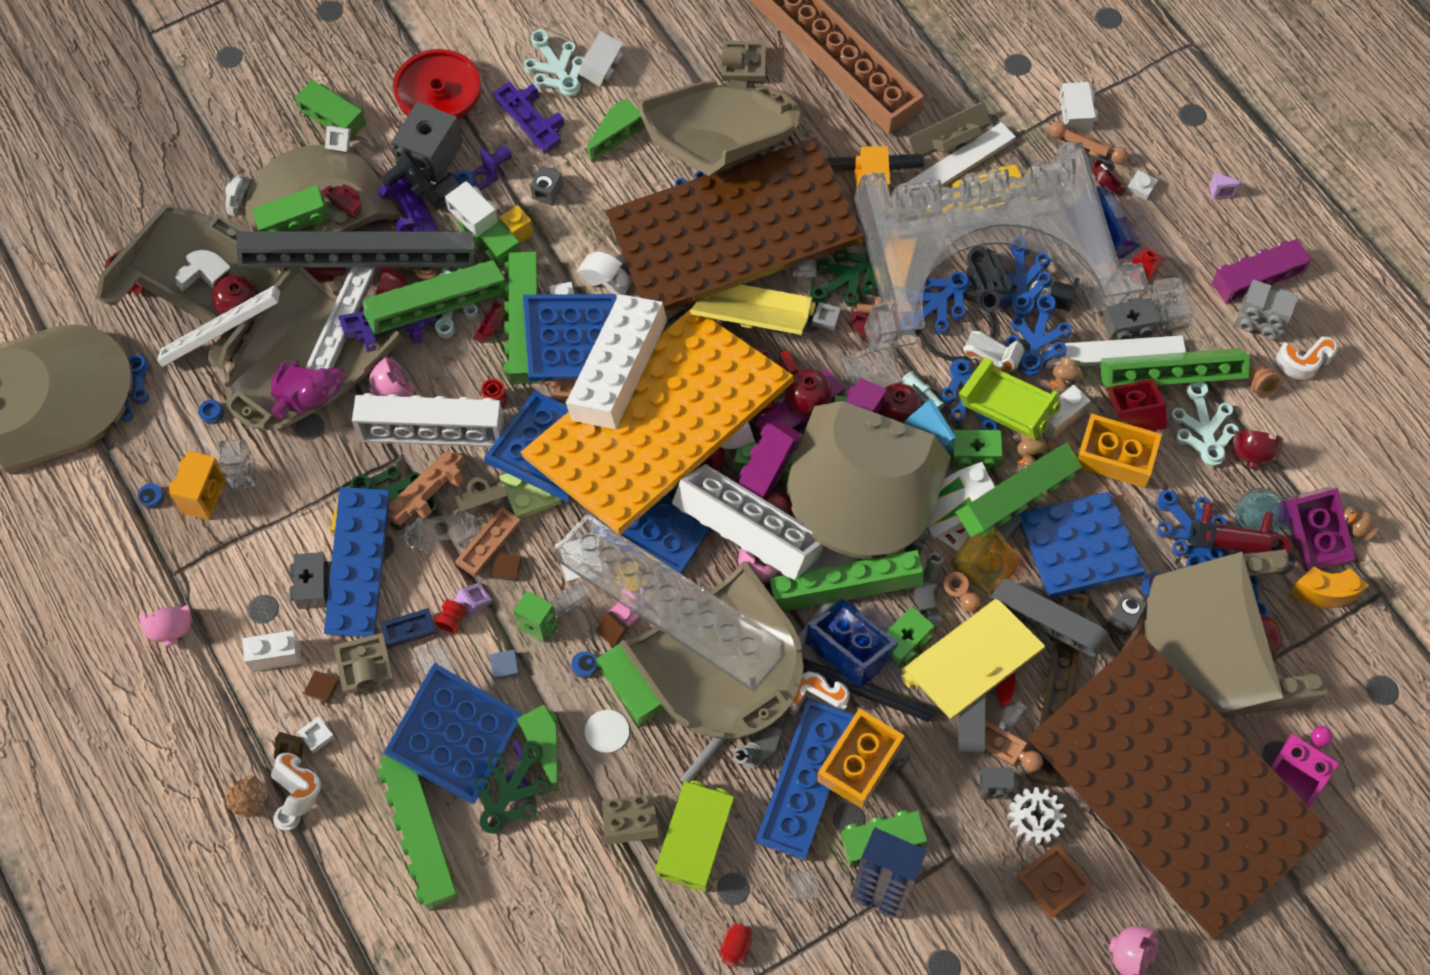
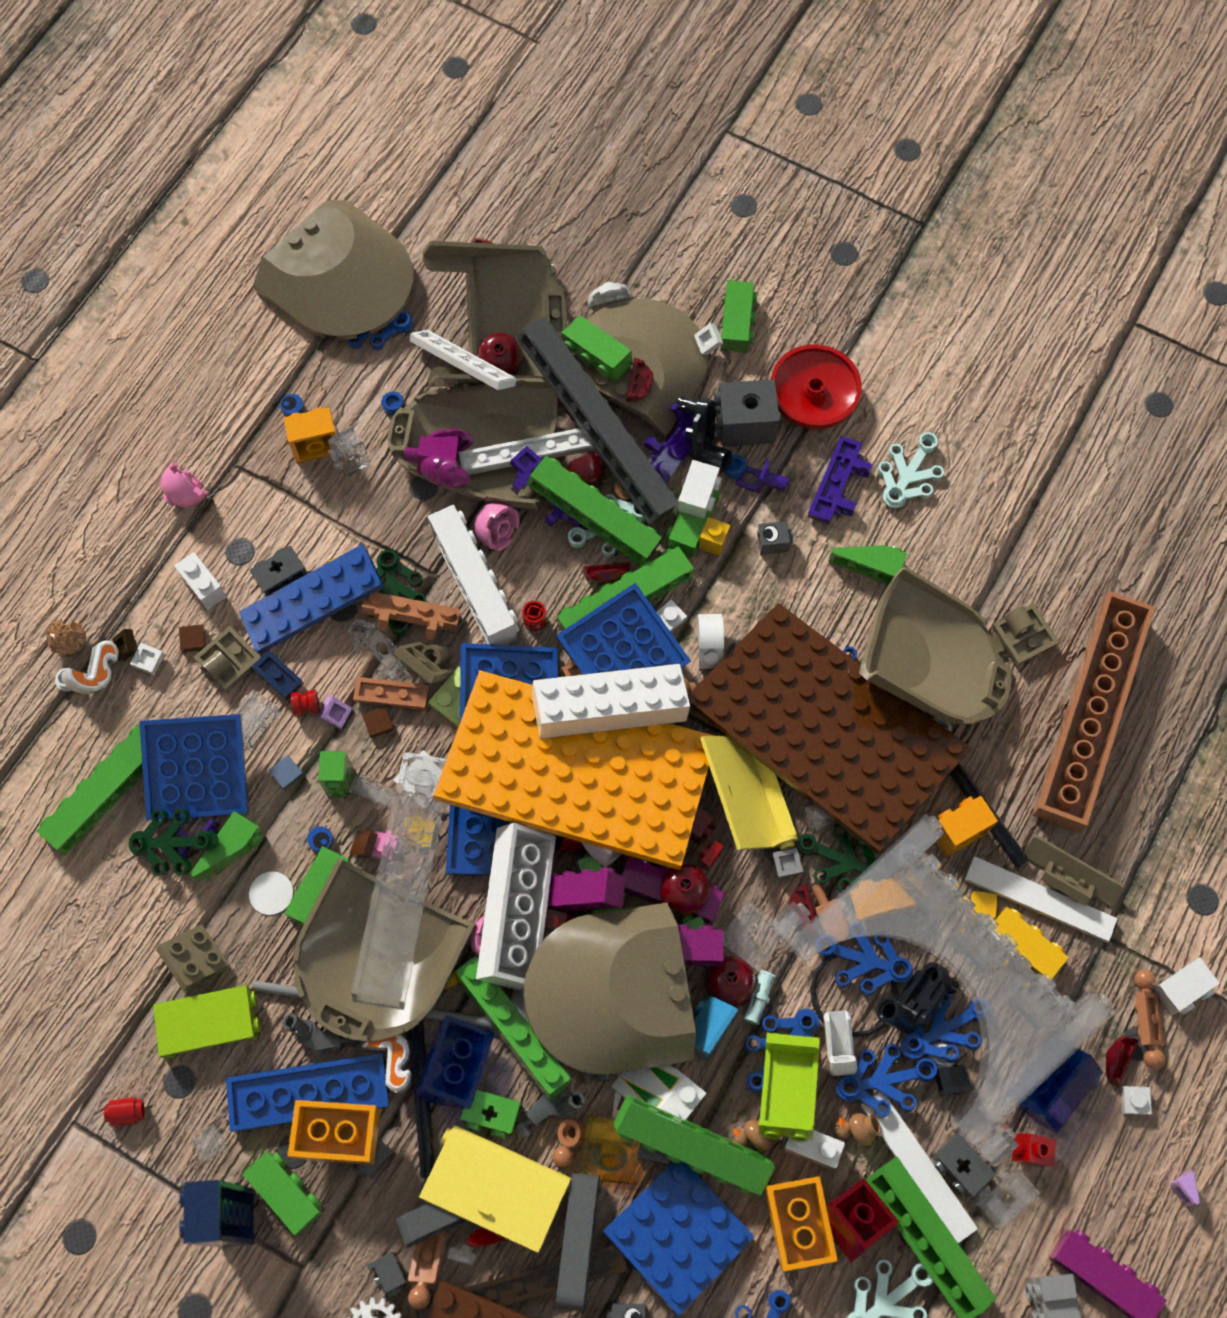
camera: 60 degrees right, 5 degrees up
(204, 265) = (509, 313): white brick -> none
(600, 58) = (939, 506): white brick -> none
(986, 443) = (737, 1089): bright green brick -> none

